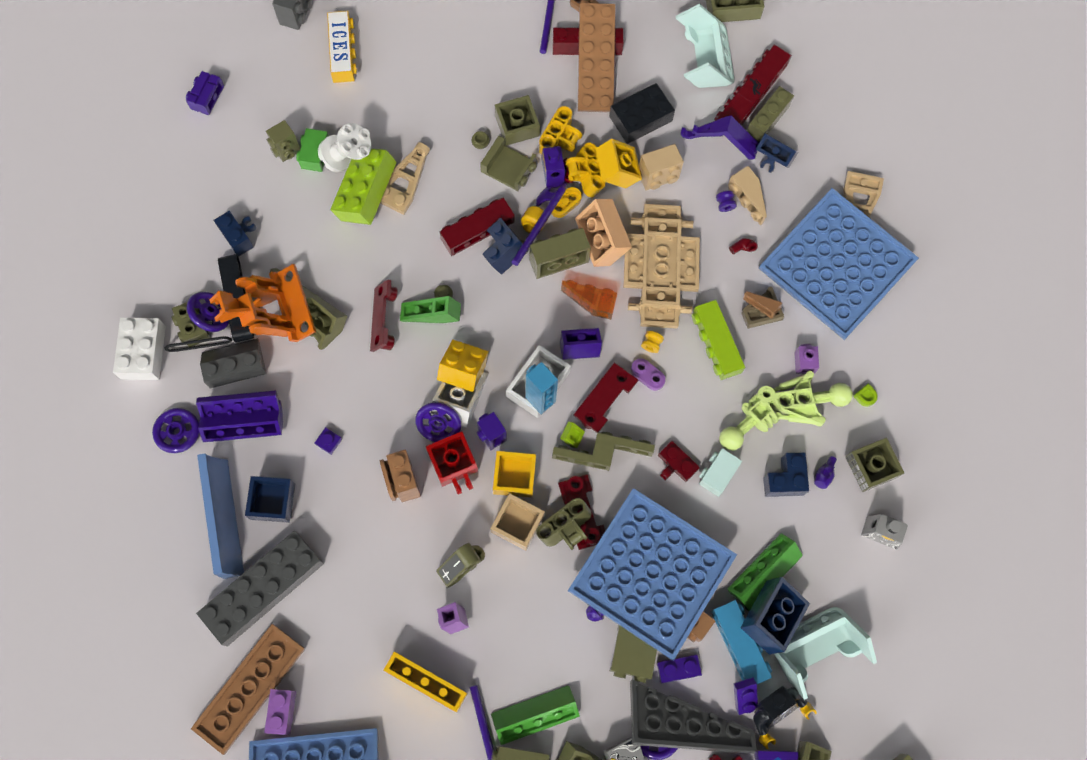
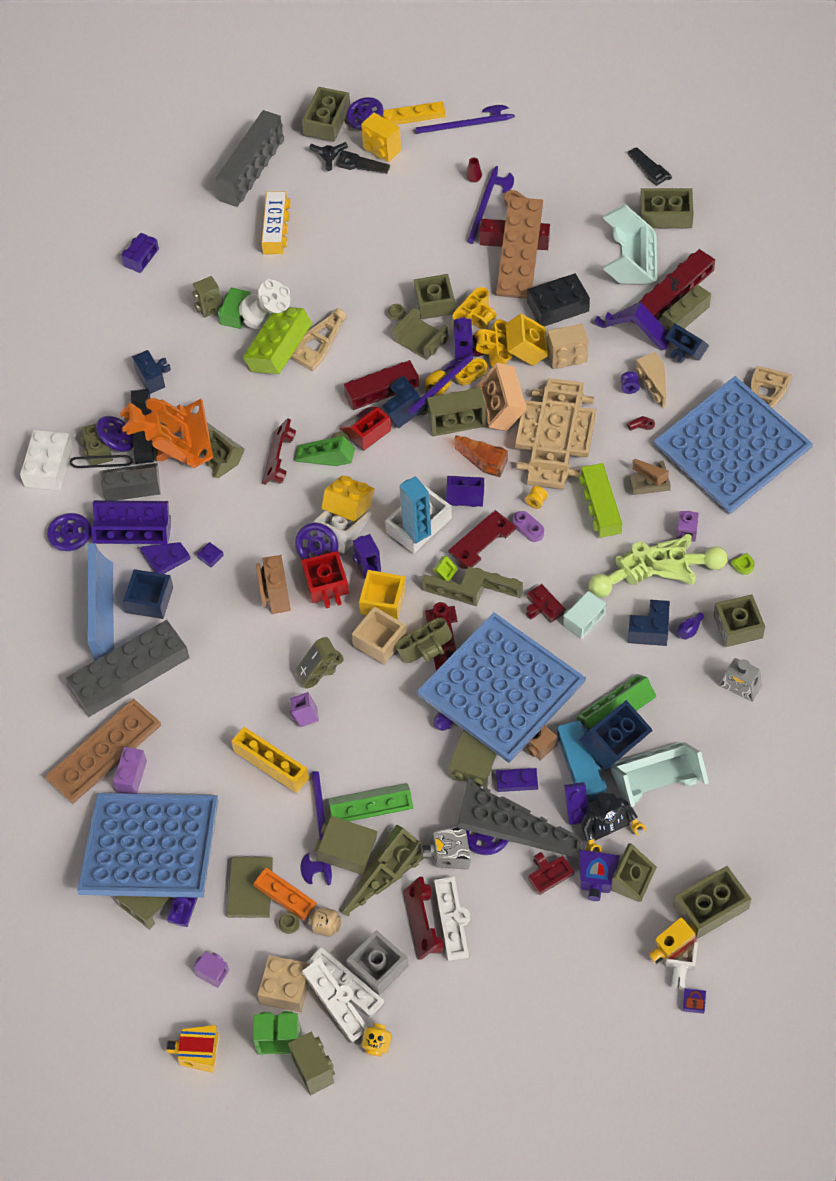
camera: 15 degrees right, 15 degrees down
(281, 448) = (165, 556): none -> dark purple wing
(469, 277) = (367, 427): none -> red slope

